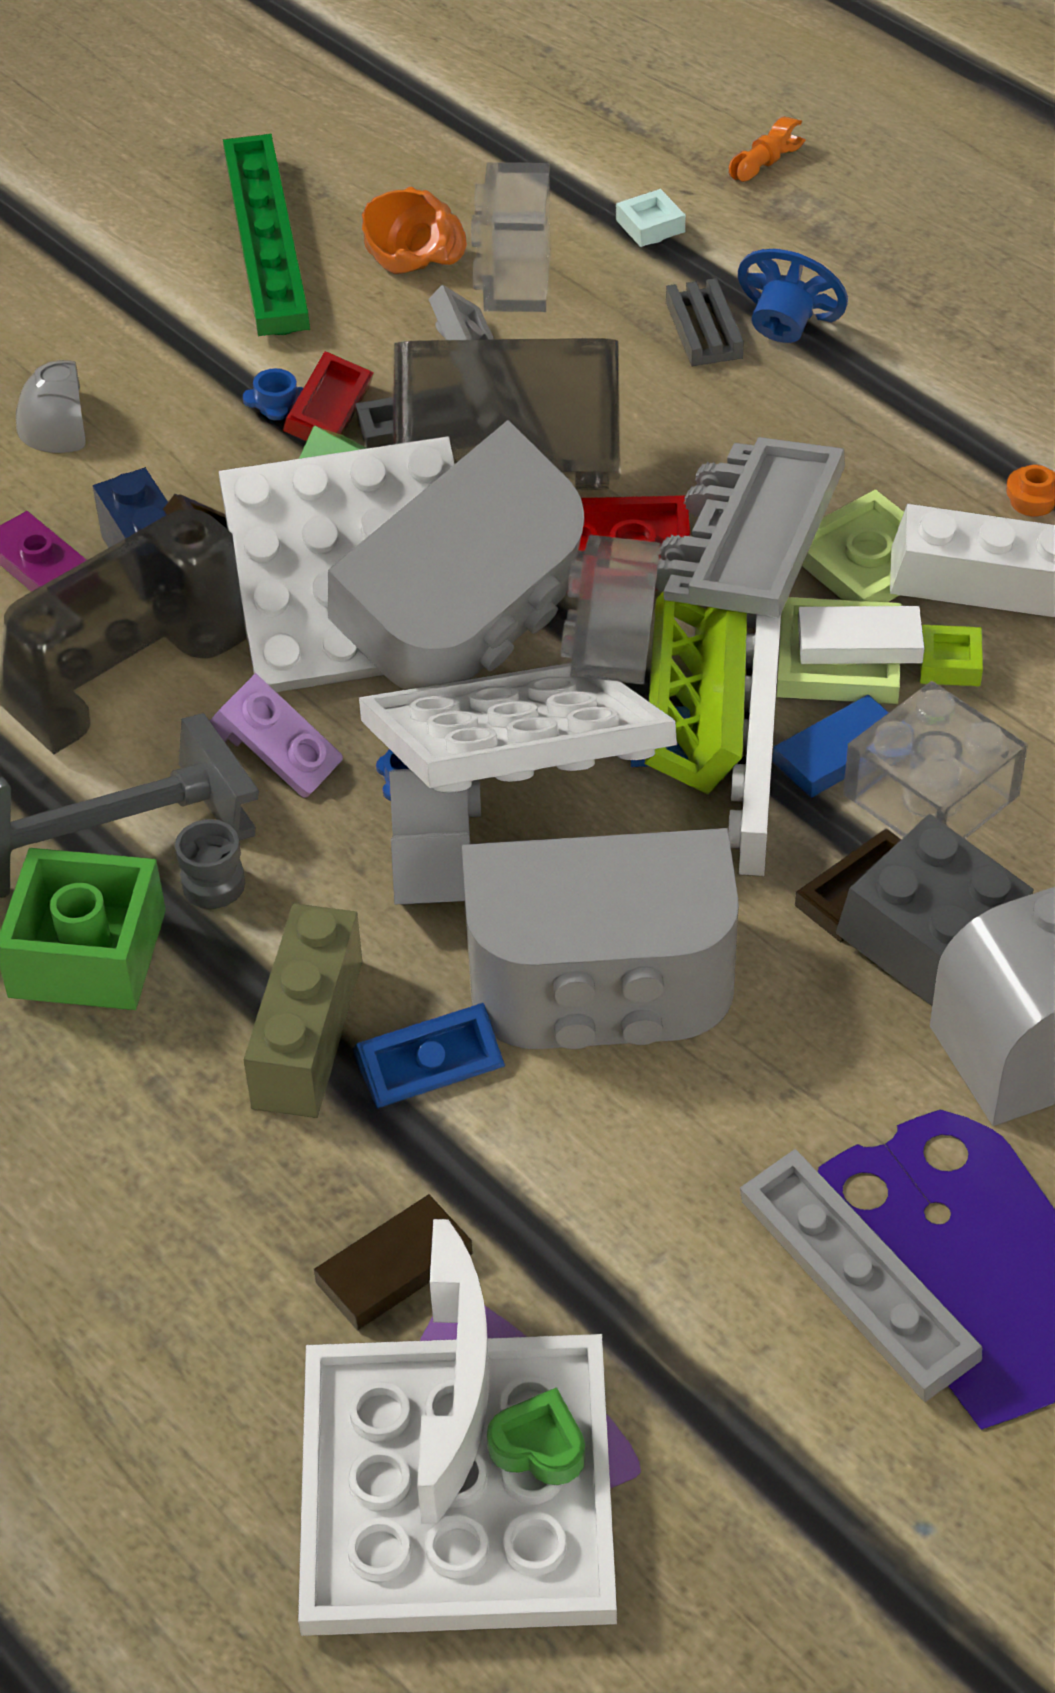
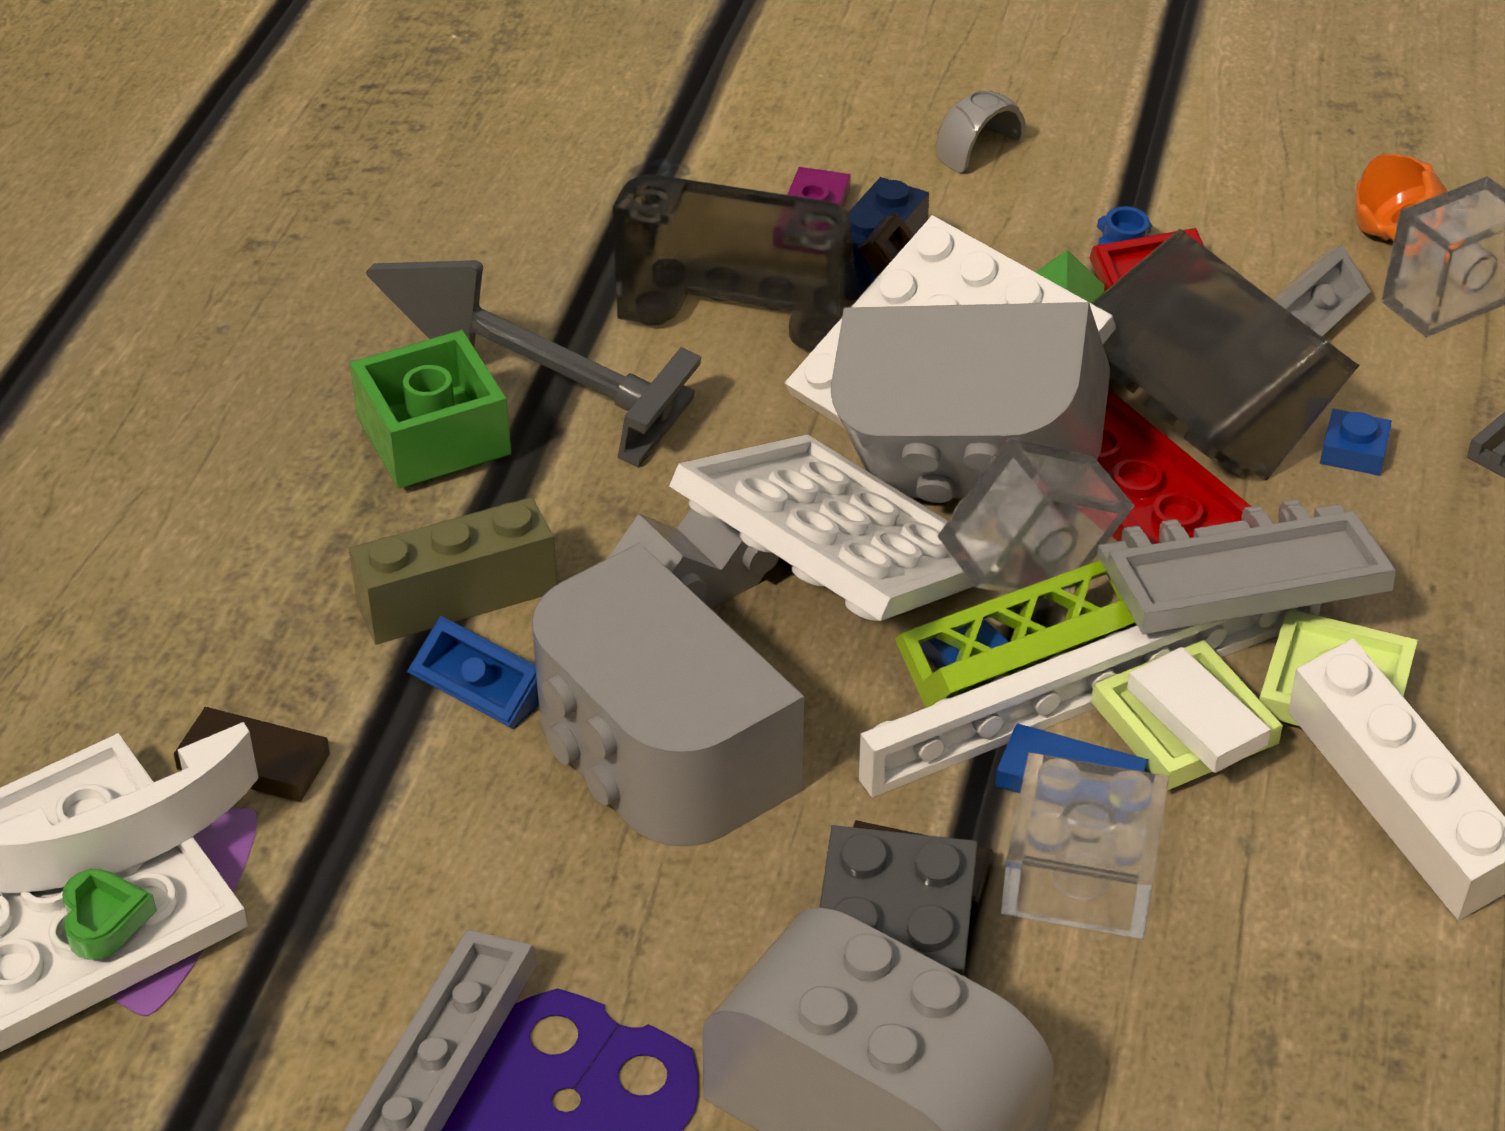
camera: 55 degrees right, 5 degrees down
(210, 863) = (565, 447): dark grey wheel -> none
(265, 236) = (1304, 134): green plate -> none
(277, 735) = (730, 404): lavender bracket -> none
(640, 409) = (1355, 441): none -> blue plate
(952, 655) = (1260, 796): lime plate -> none

